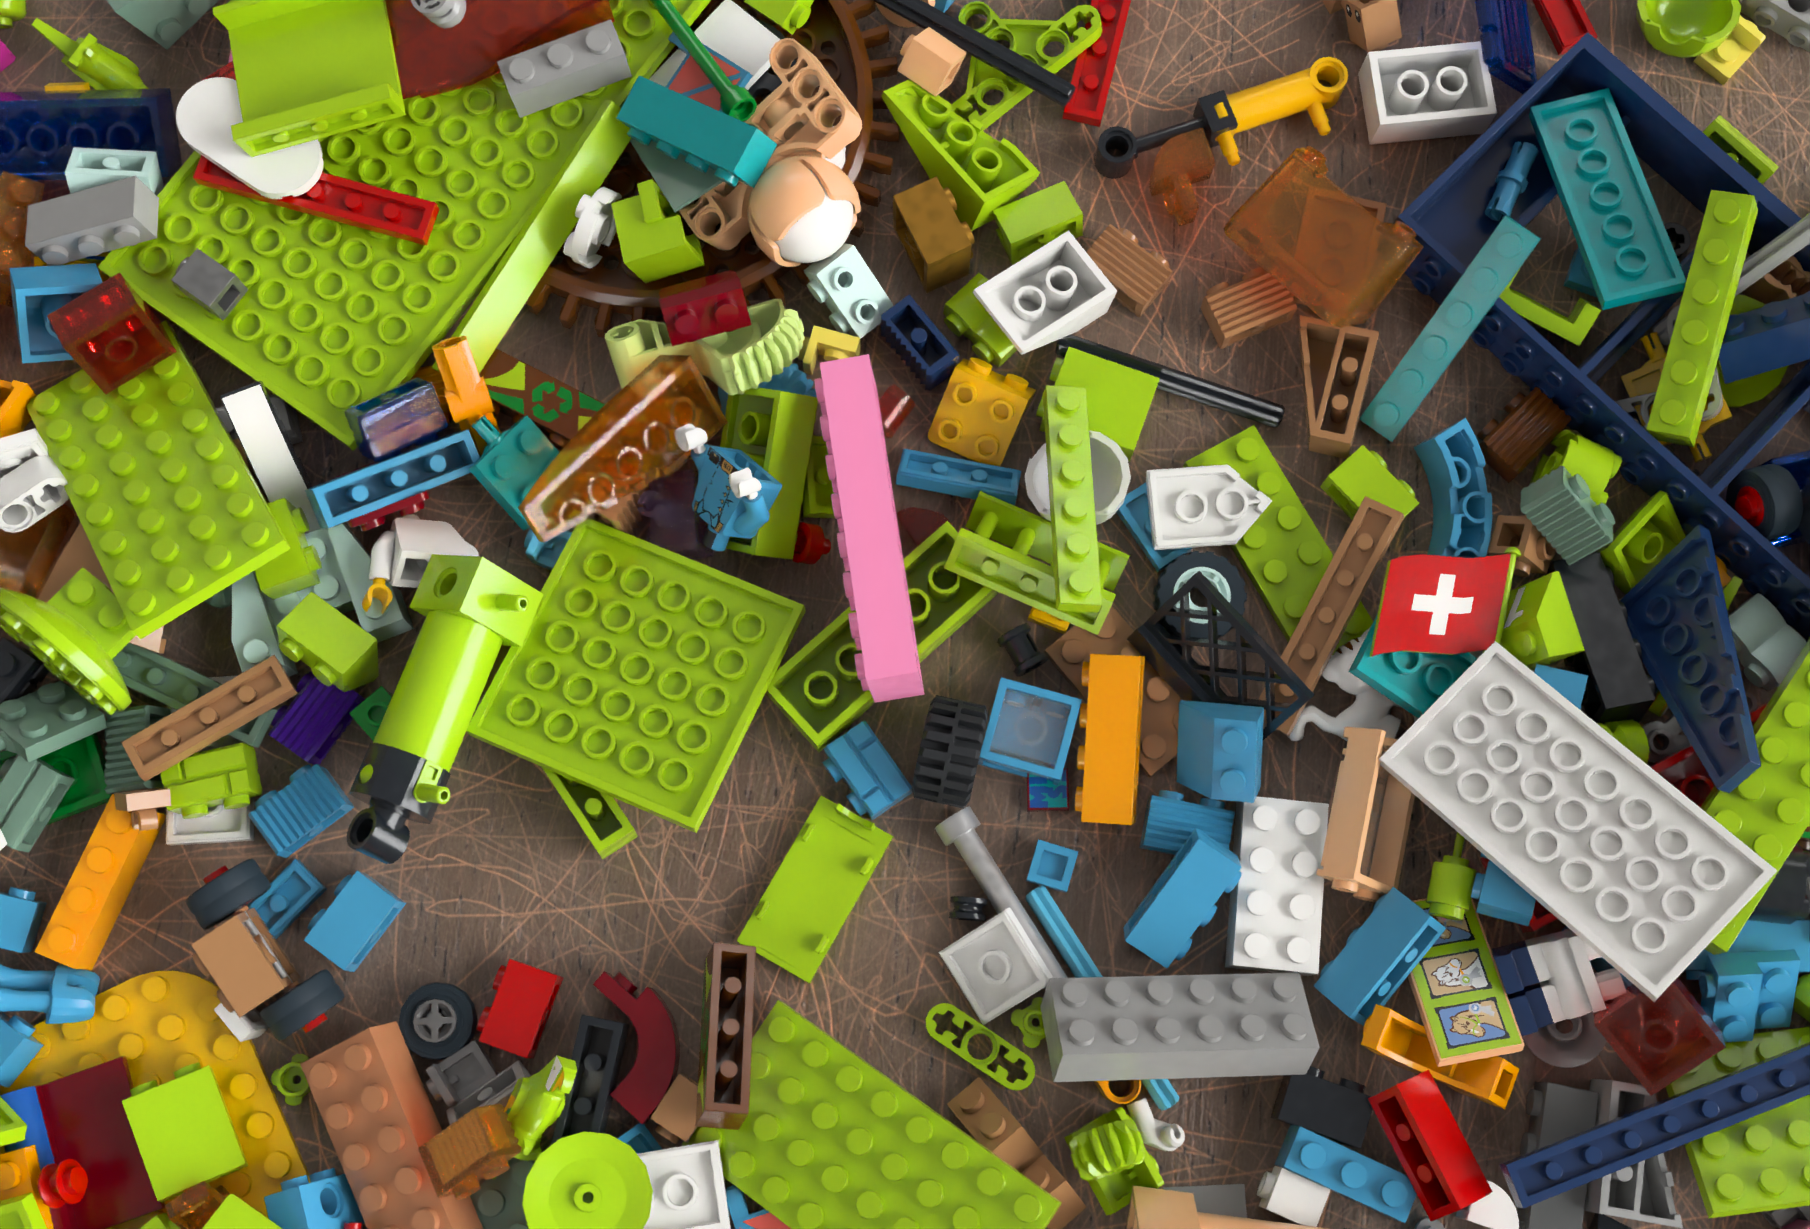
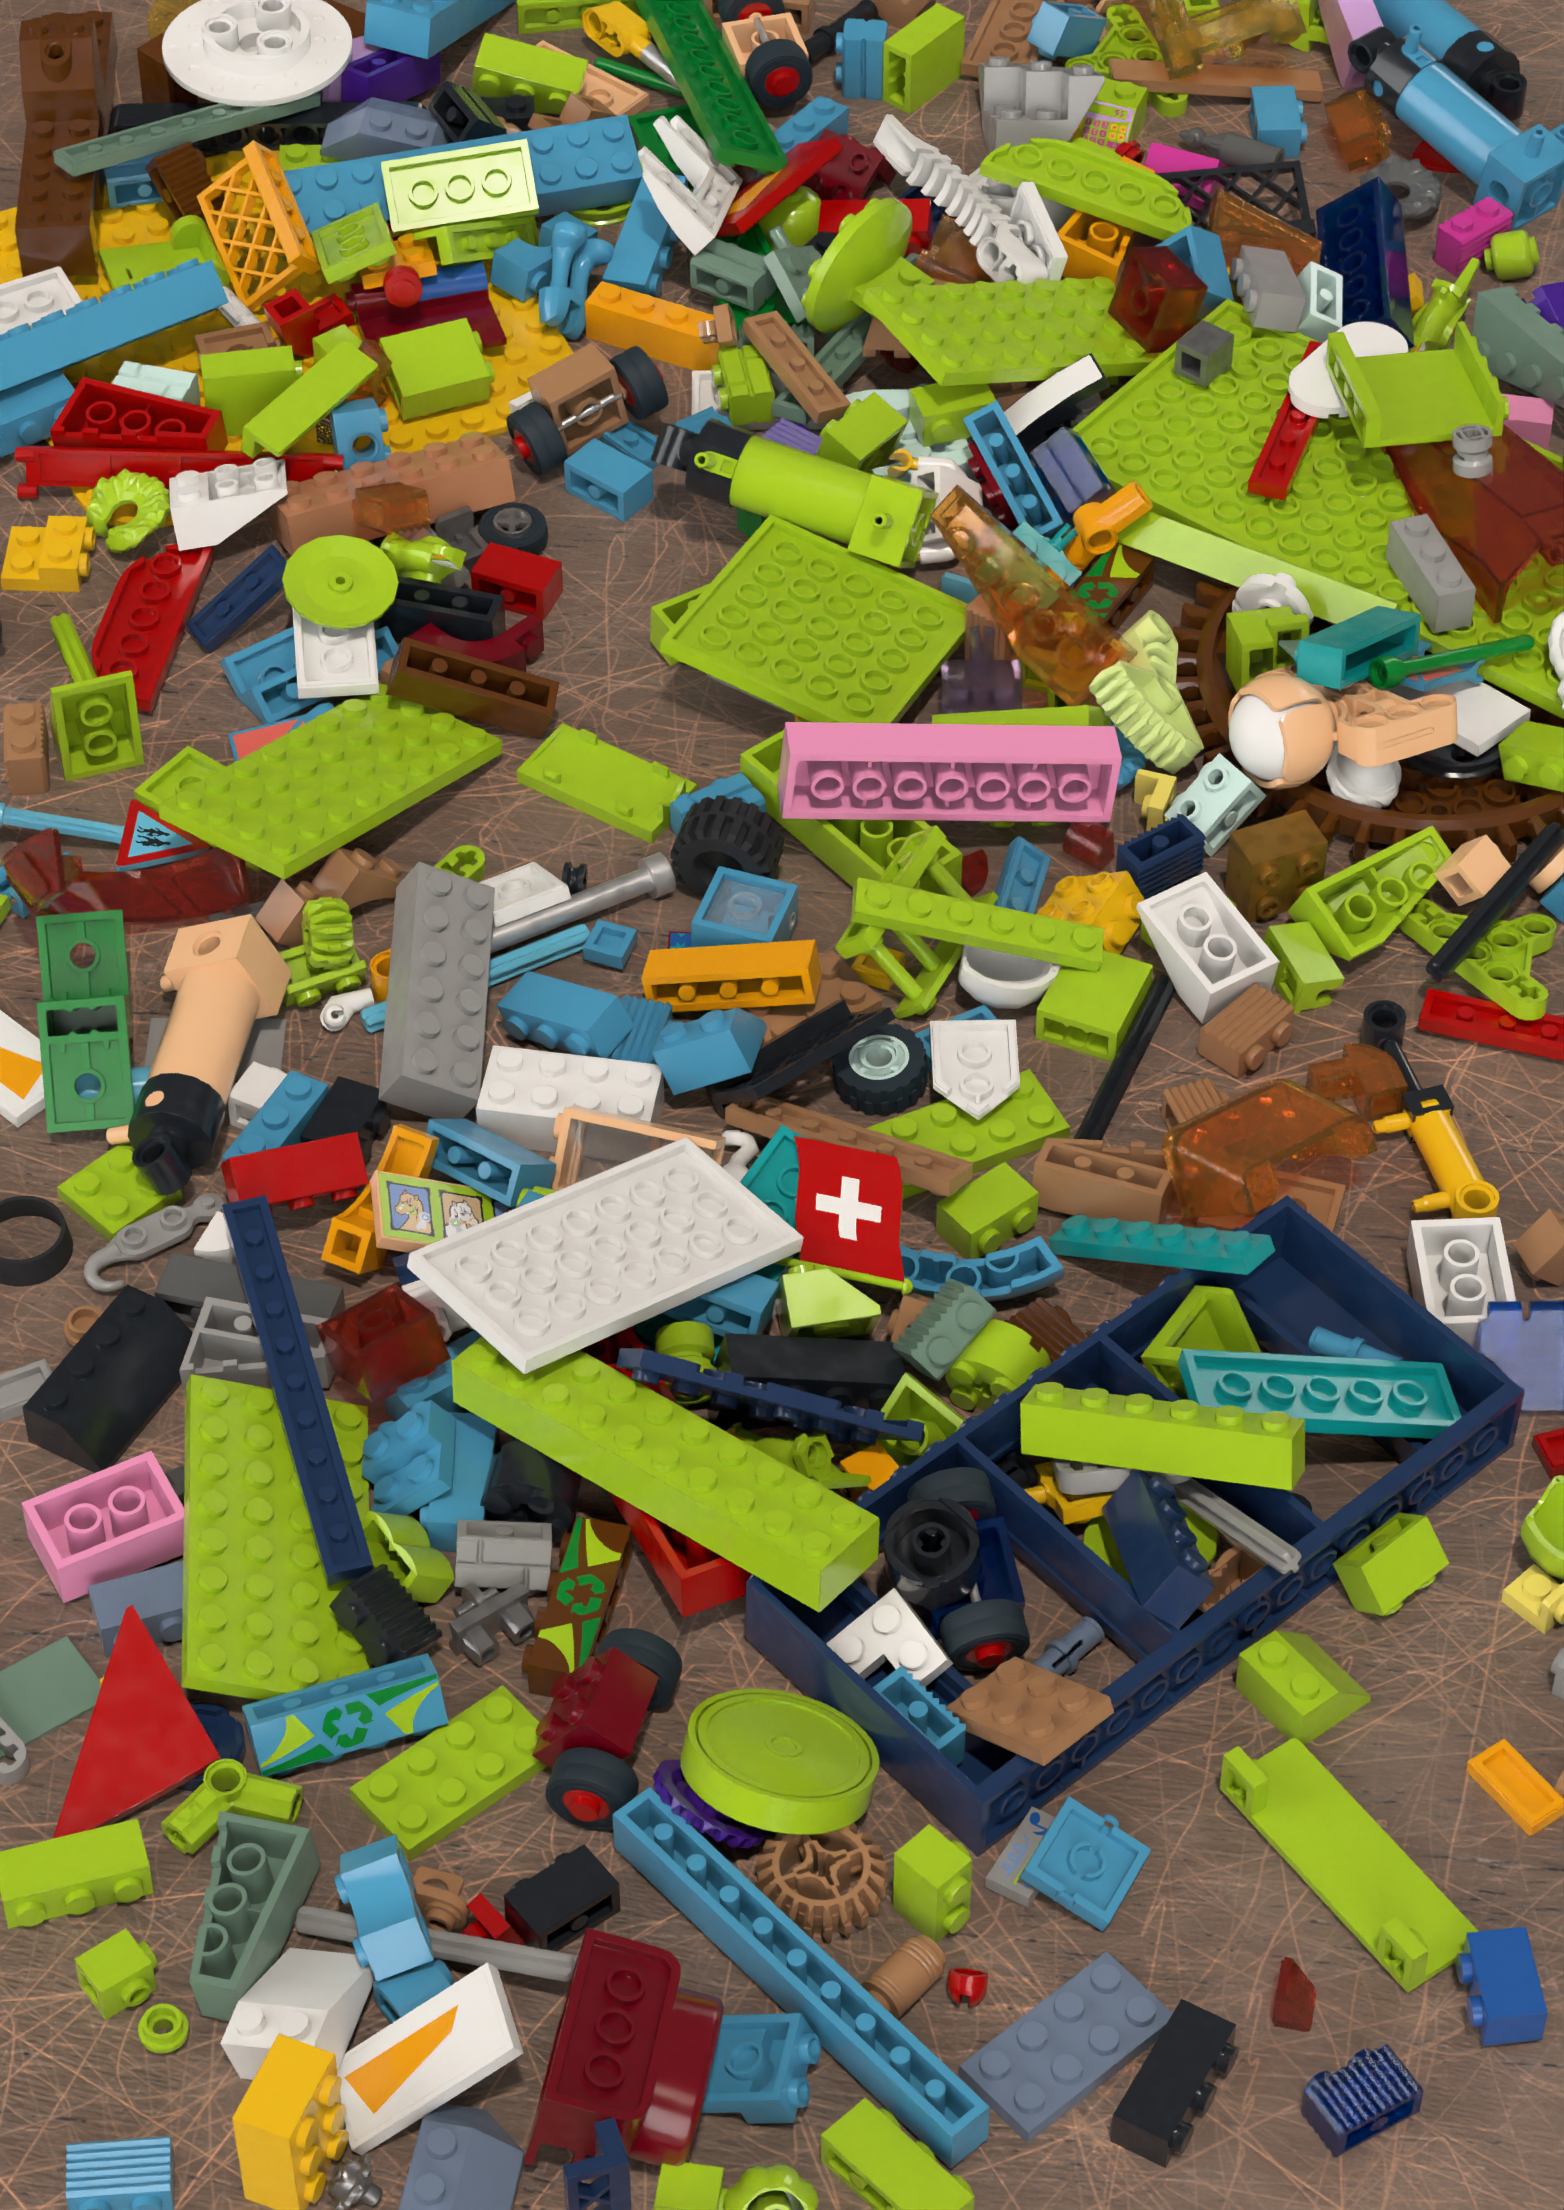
camera: 95 degrees right, 30 degrees down
(704, 307) = (1180, 673): dark red bracket -> none
(730, 491) = (997, 688): dark azure torso -> none
(1022, 649) = (820, 930): black bush -> none

